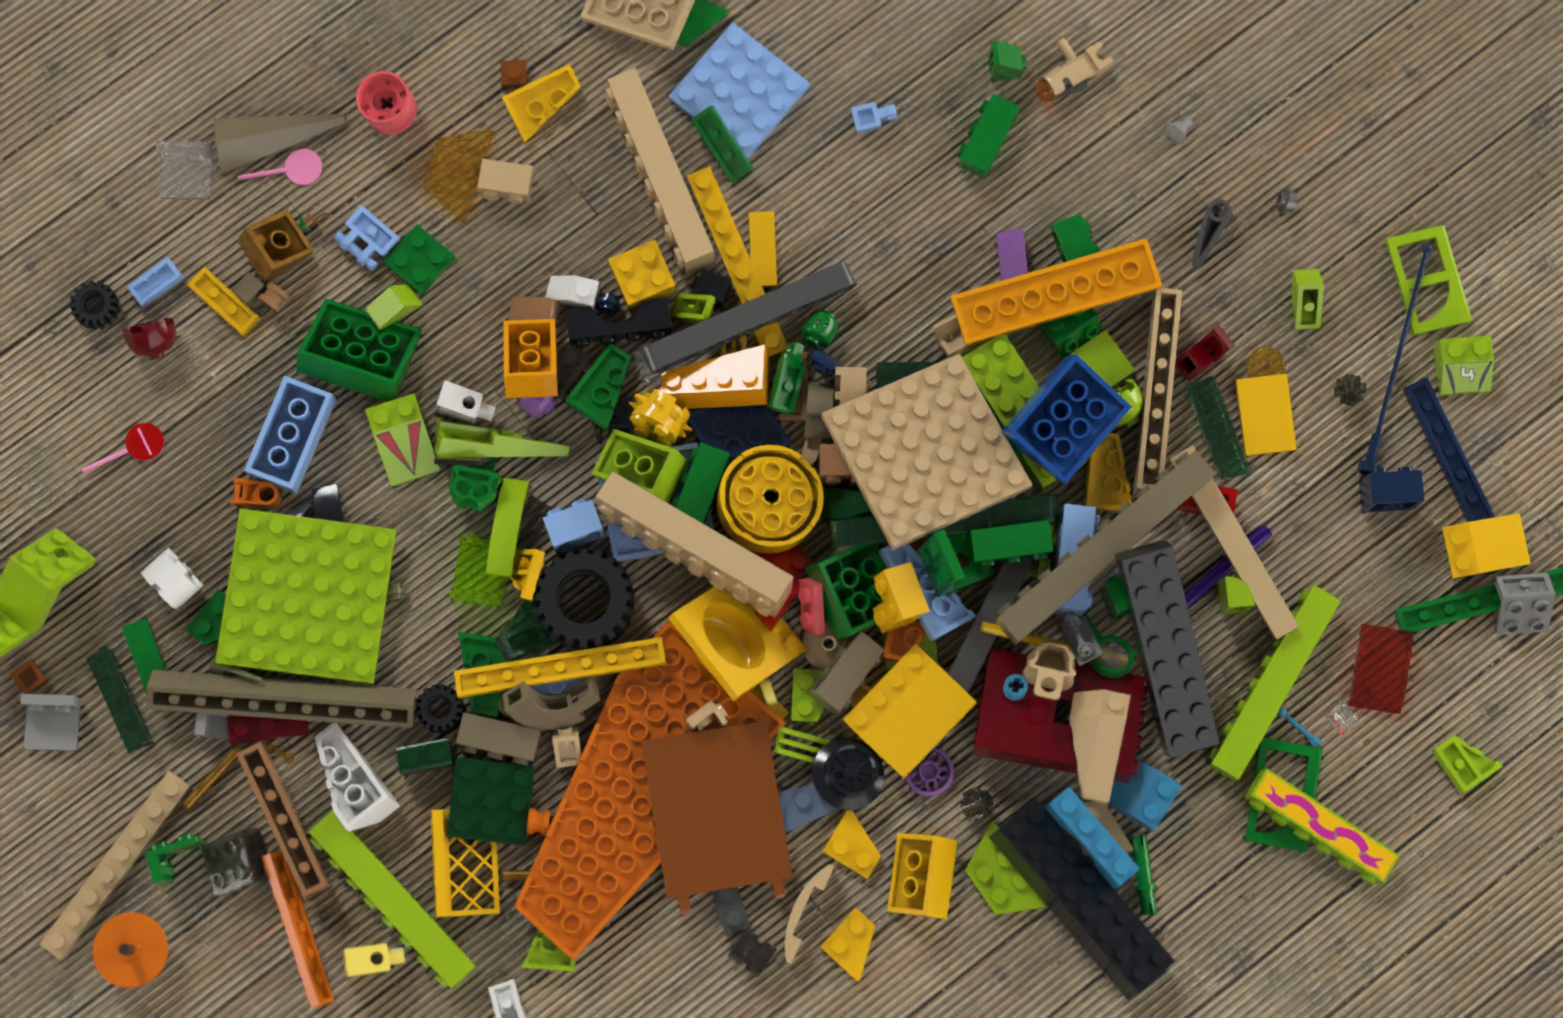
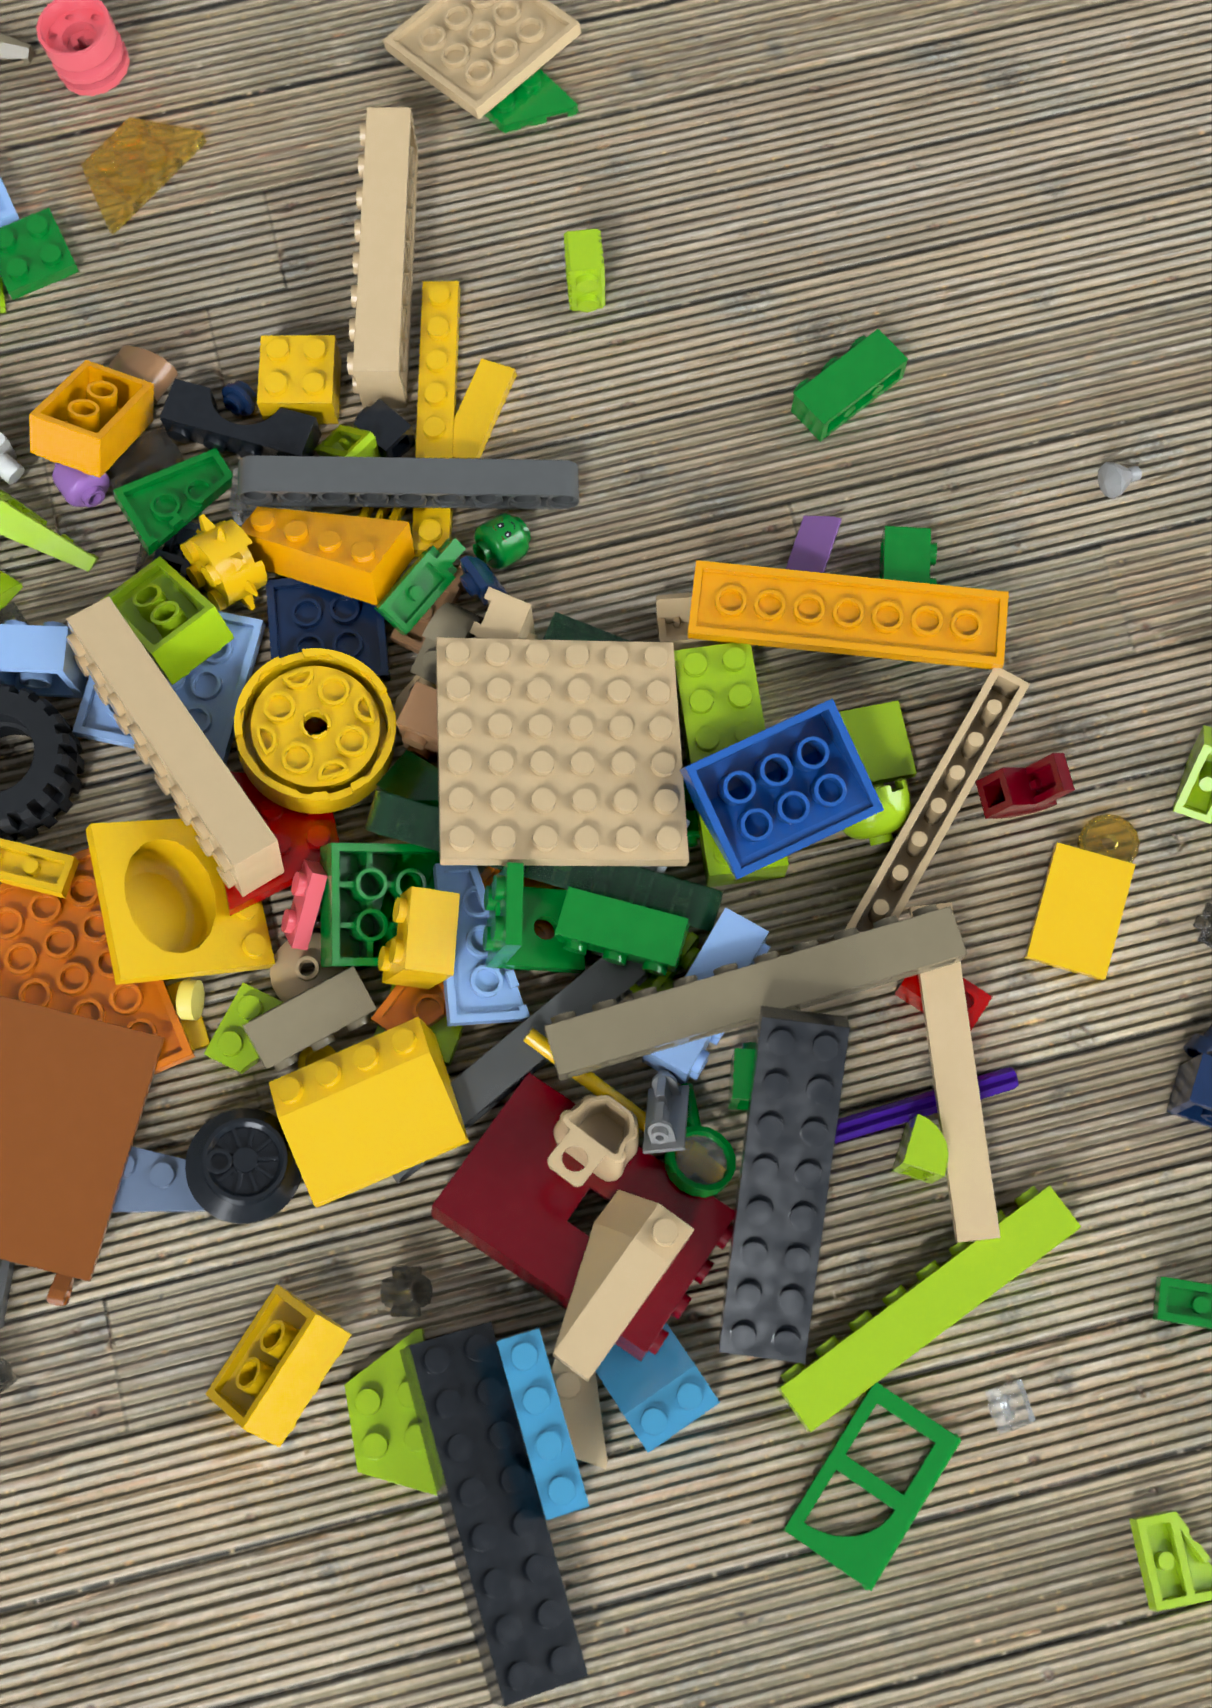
camera: 30 degrees right, 5 degrees down
(505, 181) = (187, 197): tan brick -> none
(513, 73) = (267, 80): dark orange plate -> none
(540, 100) = (283, 120): yellow wing -> none
(573, 291) = (205, 364): white slope -> none
(701, 482) = (216, 686): green brick -> none
(702, 717) = (73, 991): tan bracket -> none
(722, 144) = (487, 258): green tile -> none
(744, 85) = (535, 195): light blue plate -> none
(781, 740) = (171, 1075): lime tile -> none
(791, 129) = (585, 270): none -> lime brick
(818, 882) = (43, 1377): tan slope -> none
(851, 943) = (128, 1418): yellow wing -> none
(852, 846) = (201, 1275): yellow wing -> none
(869, 118) = (698, 299): light blue plate -> none
(929, 772) = (364, 1215): medium lavender wheel -> none
(1005, 61) = (915, 296): green slope -> none
(1021, 692) = (530, 1131): dark azure bush -> none
(1071, 331) = (851, 680): green bracket -> none
(1073, 74) = (1002, 351): tan piece -> none
(1106, 476) = (812, 896): yellow wing -> none
(1144, 875) = (605, 1514): green pin -> none
(1211, 230) = (1108, 623): dark grey piece -> none
(1218, 428) = (1001, 901): clear green fence -> none
(1314, 740) = (954, 1421): dark azure hinge -> none
(1321, 826) = (910, 1565): brick -> none
(1381, 668) = (1102, 1357): clear red piece -> none

